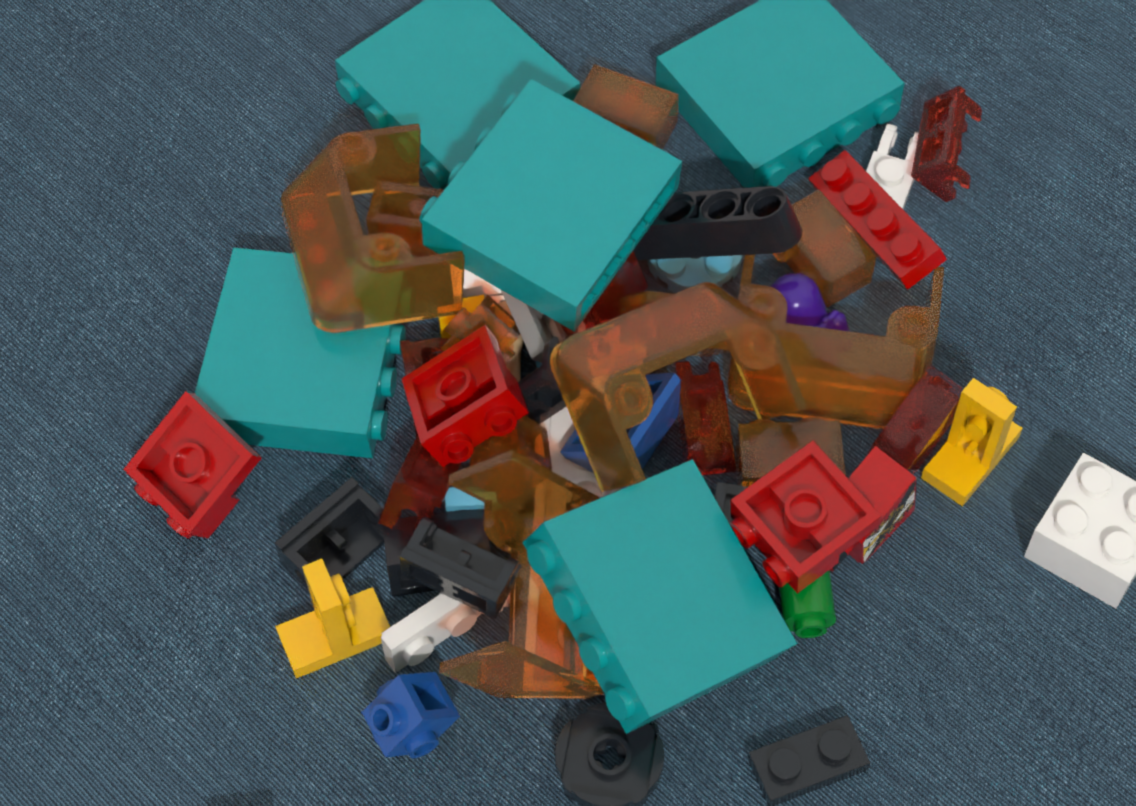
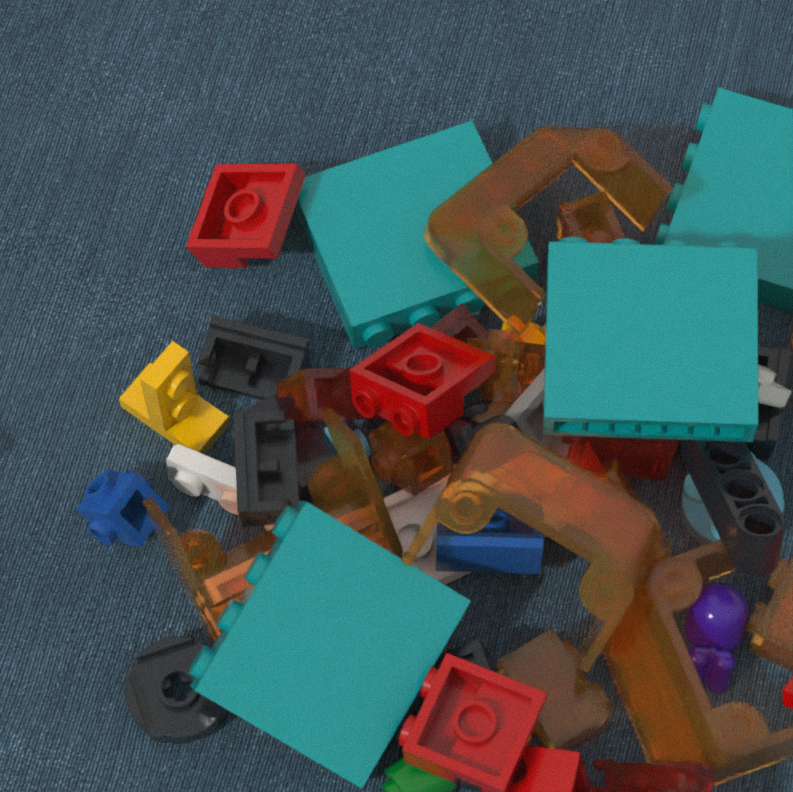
camera: 60 degrees right, 5 degrees up
(705, 420) = (544, 600): clear red hinge -> none

